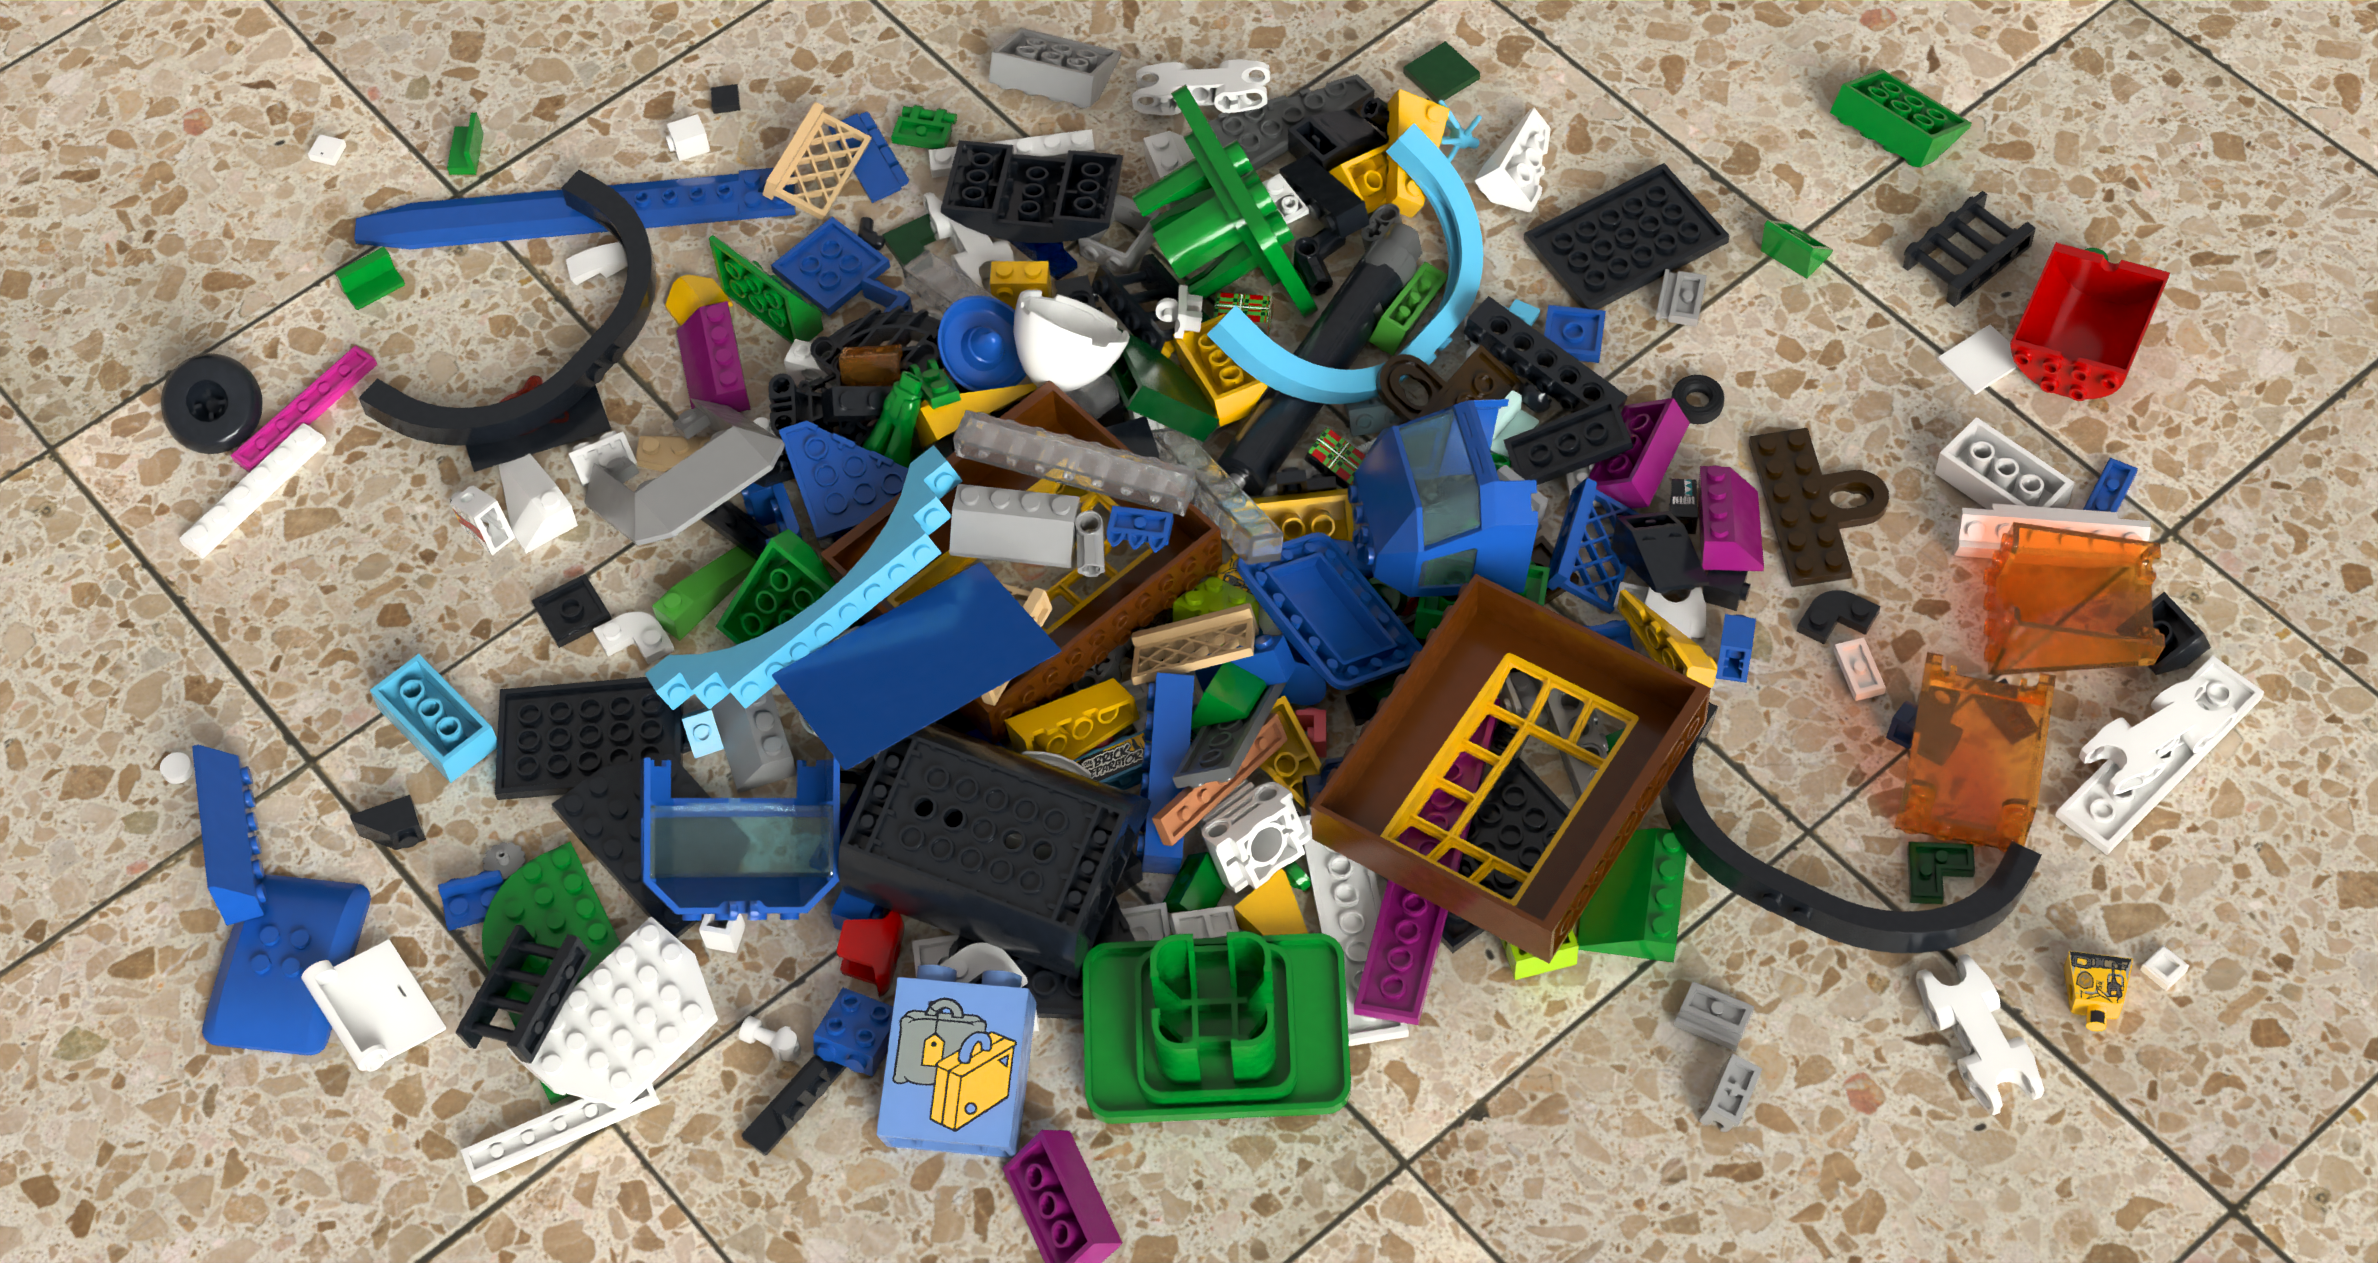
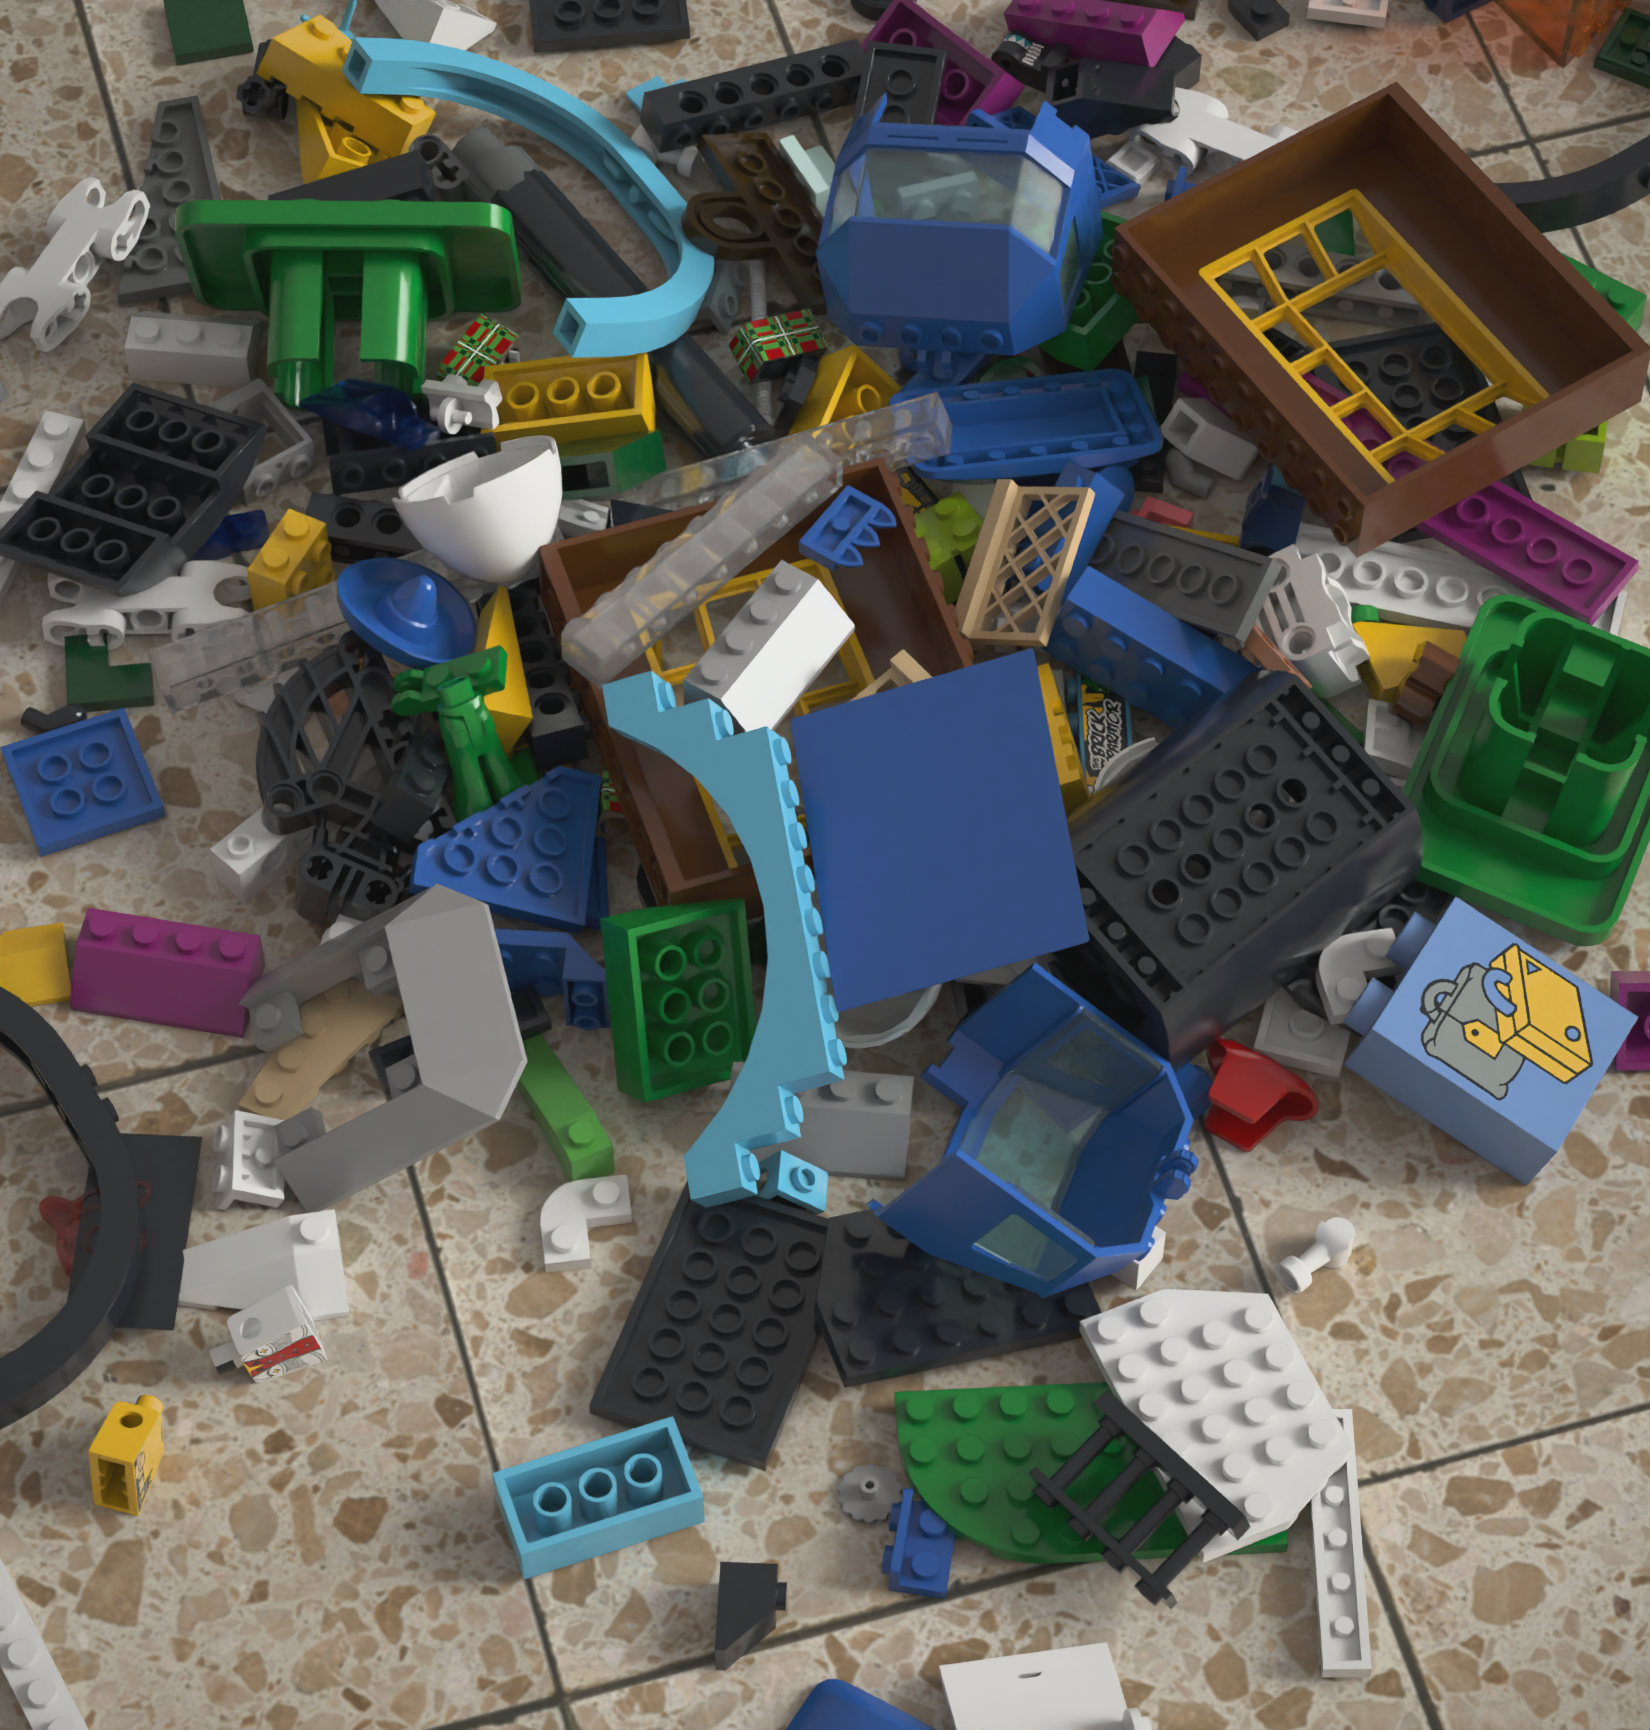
camera: 70 degrees left, 0 degrees up
(379, 482) = (129, 1438): none -> yellow torso
(571, 610) = (490, 1284): black tile -> none
(765, 295) = (103, 862): green slope -> none
(791, 1104) = (1422, 1252): black bracket -> none
(854, 1032) = (1364, 1148): blue brick -> none
(870, 365) = (361, 749): clear orange panel -> none
(885, 296) = (202, 723): blue bracket -> none
(1090, 544) = (848, 588): light grey piece -> none
(1153, 280) = (374, 411): none -> clear blue piece
(1228, 696) = (1118, 553): green slope -> none
(1251, 919) = (1425, 684): none -> reddish brown leg
(1333, 138) = (254, 160): black slope -> none
(1408, 308) = (598, 202): bright green slope -> none
(1533, 398) = (802, 129): black plate -> none
(1576, 331) = (712, 49): blue plate -> none
(1665, 642) = (1236, 137): yellow wedge -> none
(1735, 648) = (1274, 85): blue brick -> none

